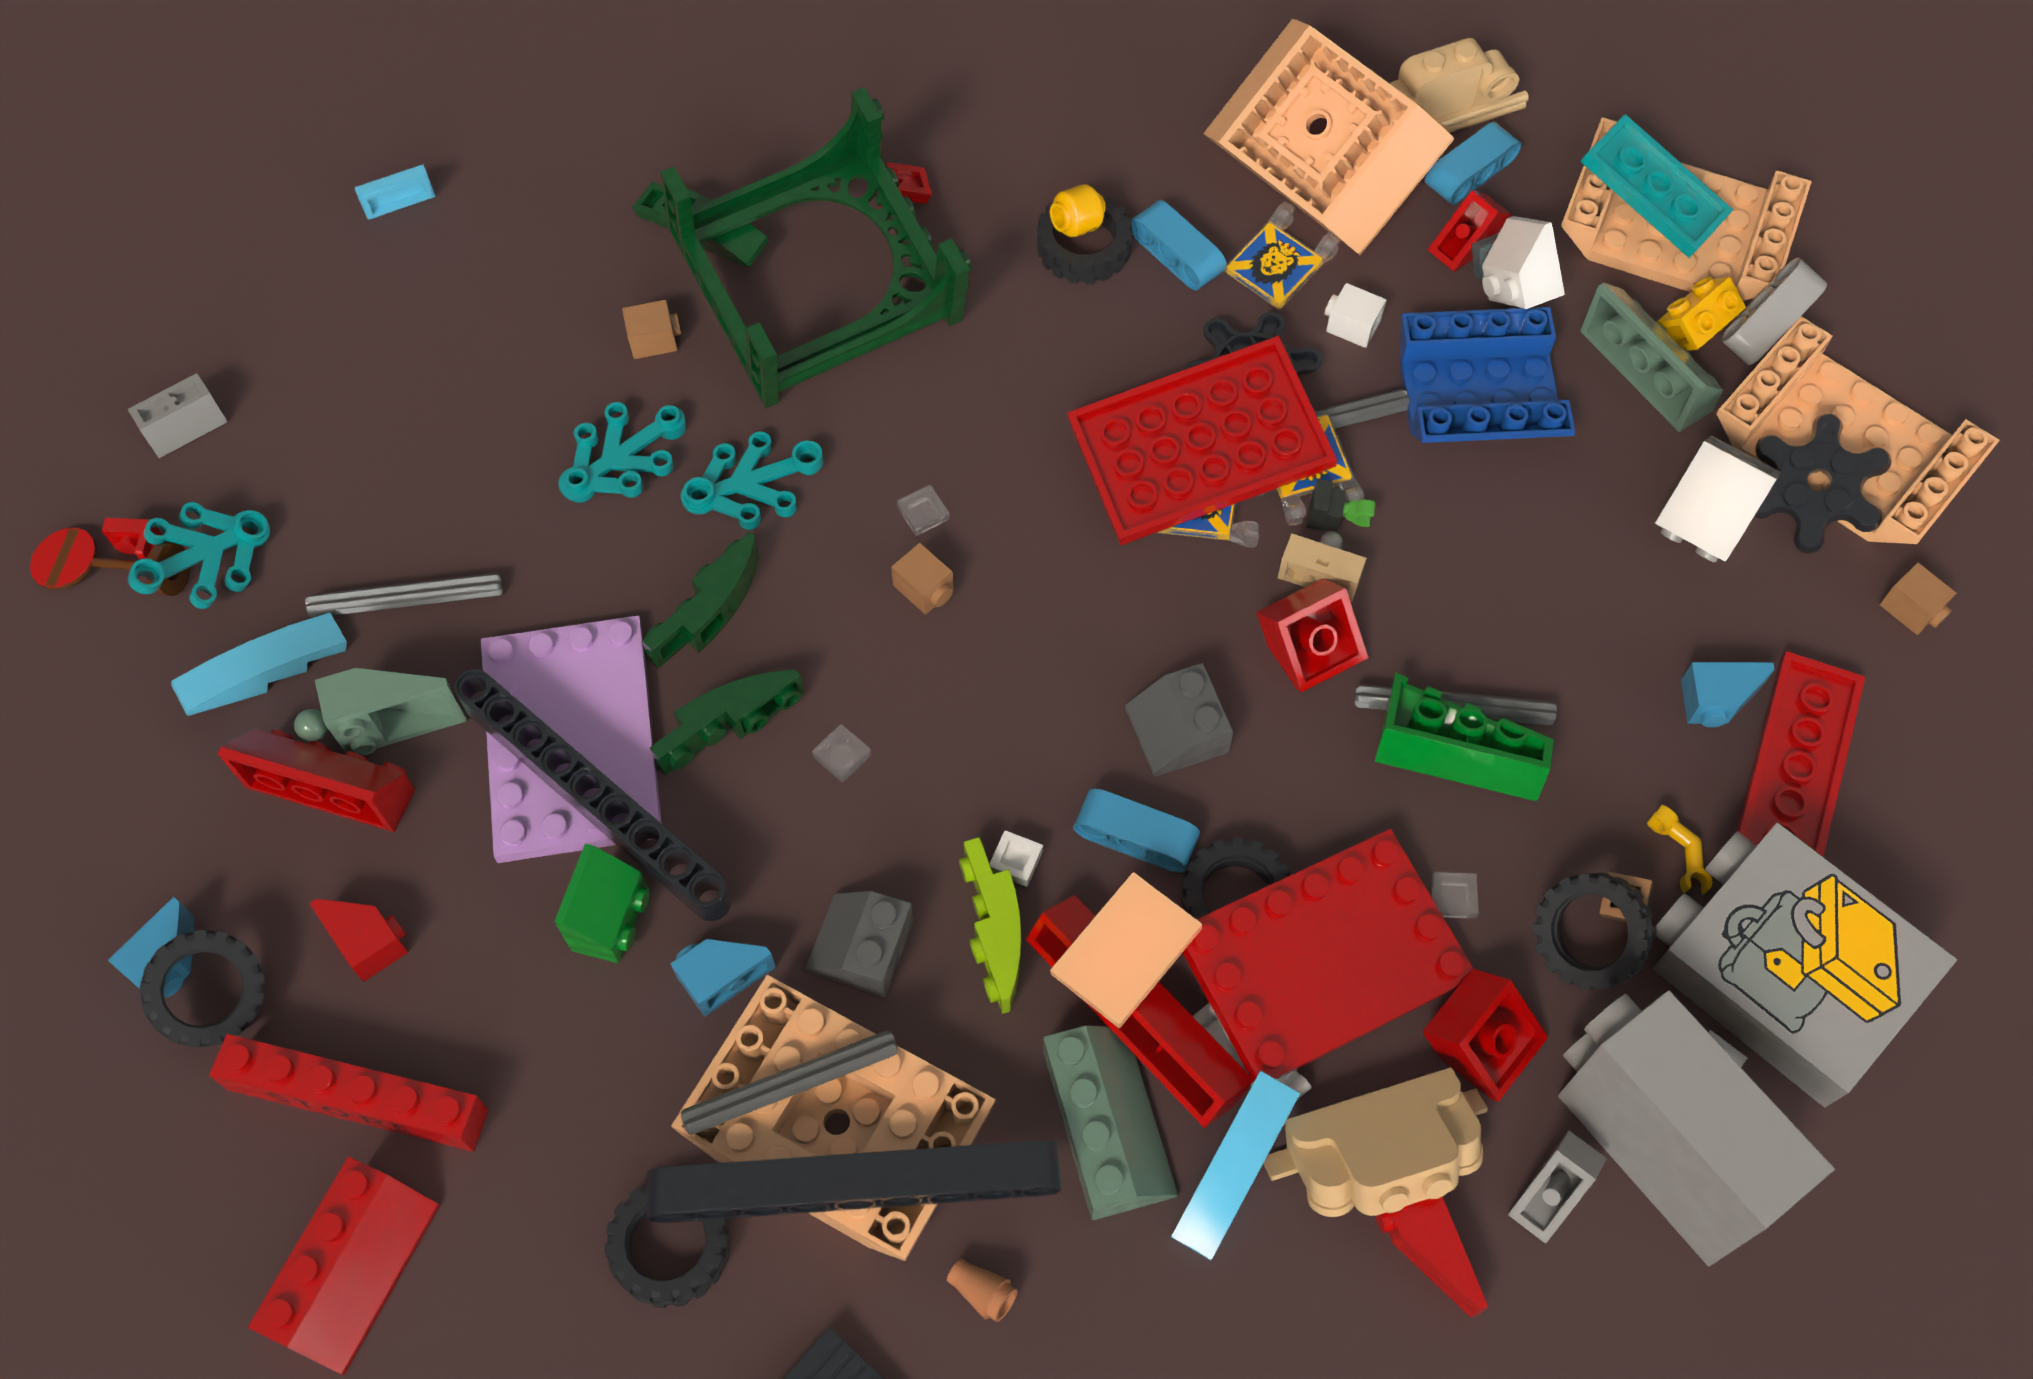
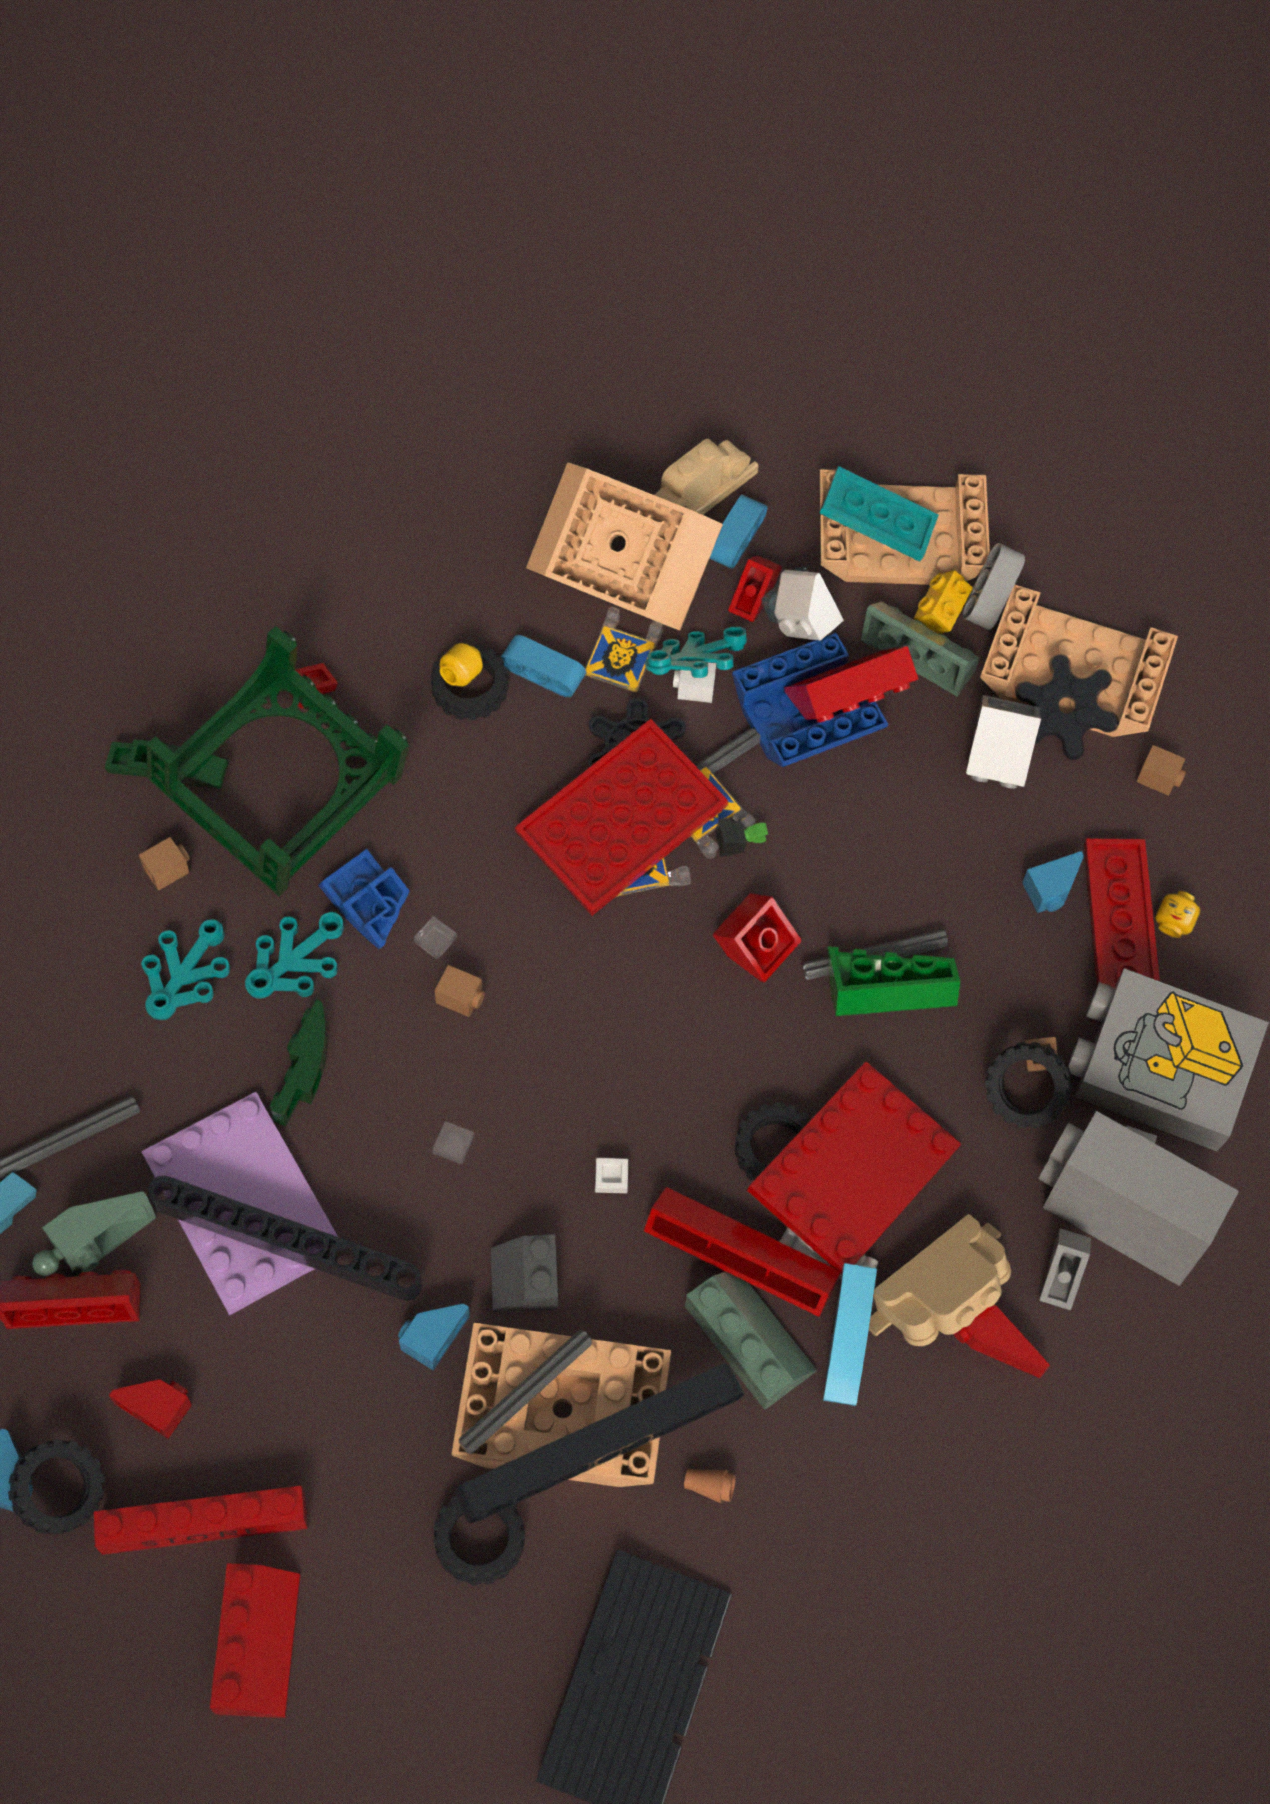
camera: 25 degrees left, 0 degrees up
(602, 905) = (330, 1317): green slope -> none
(738, 706) = (362, 1135): dark green slope -> none
(863, 437) = (367, 896): none -> blue slope
(999, 934) = (624, 1235): lime slope -> none
(1126, 949) = (721, 1212): light nougat tile -> none
(1136, 830) = (689, 1124): dark azure beam -> none
(1180, 721) = (688, 1034): dark grey slope -> none
(1311, 561) = (737, 882): tan piece -> none
(1366, 281) = (696, 650): none -> teal plant
(1455, 894) = (925, 1091): clear tile -> none
(1486, 1033) = (981, 1181): red slope -> none
(1549, 370) = (853, 683): none -> red slope
(1666, 823) = (1048, 990): yellow arm -> none
(1877, 784) = (1177, 914): none -> yellow head

